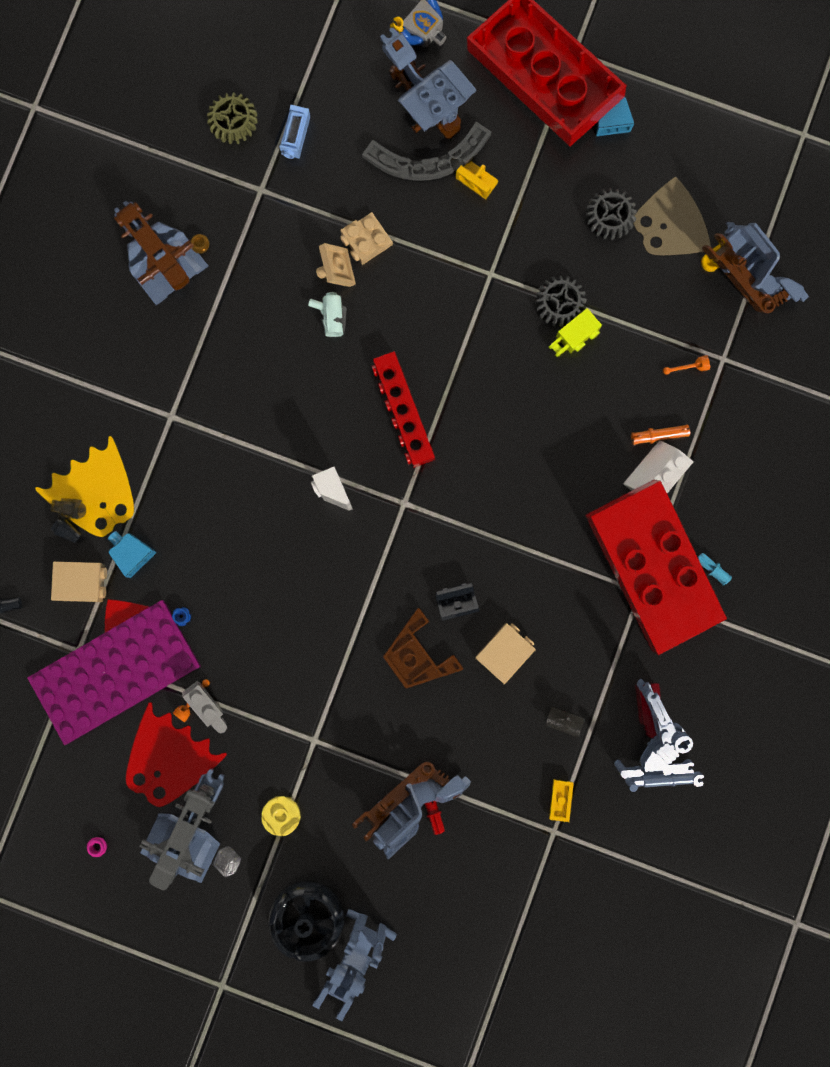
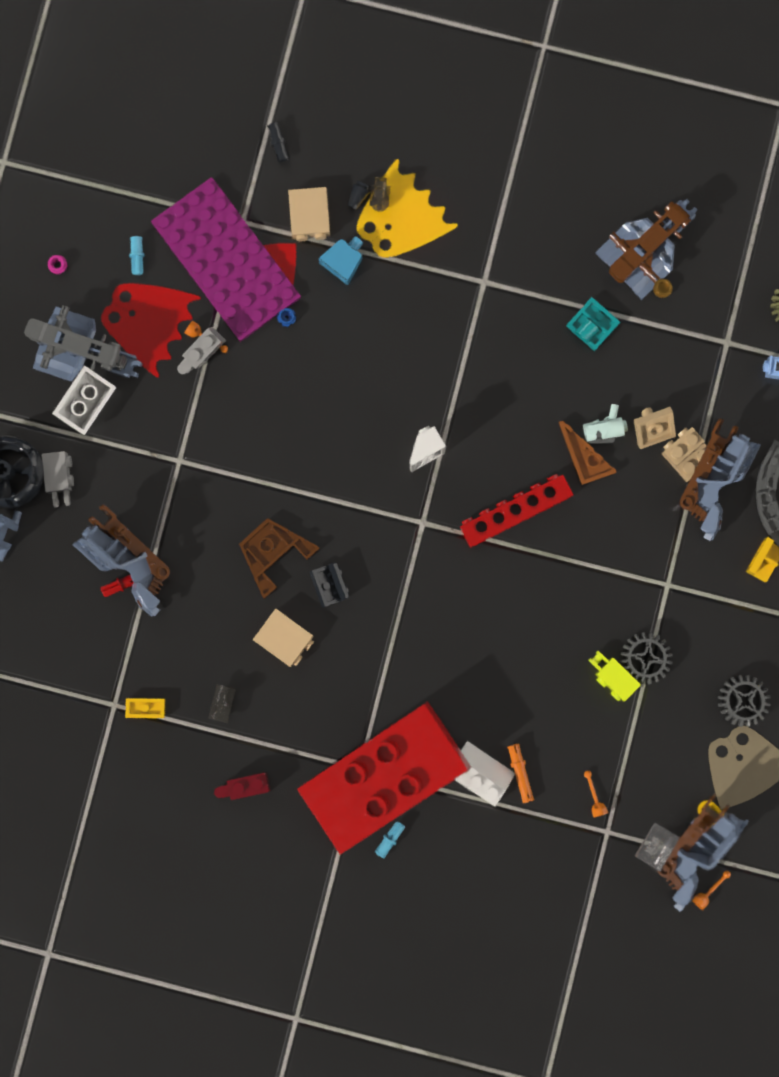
camera: 90 degrees right, 0 degrees up
(98, 763) = (136, 255): none -> medium azure axle
(226, 314) = (593, 324): none -> teal plate
(227, 861) = (54, 390): clear slope -> none
(241, 833) = (84, 400): none -> white slope
(280, 816) = (104, 437): light yellow tile -> none
(316, 867) = (58, 476): none -> light grey hinge
(364, 335) = (587, 462): none -> dark orange wing
(388, 211) = (717, 468): none -> sand blue piece
(661, 751) = (204, 800): sand blue piece -> none
(745, 310) = (657, 846): none -> clear tile
(796, 275) = (702, 900): none -> orange hinge

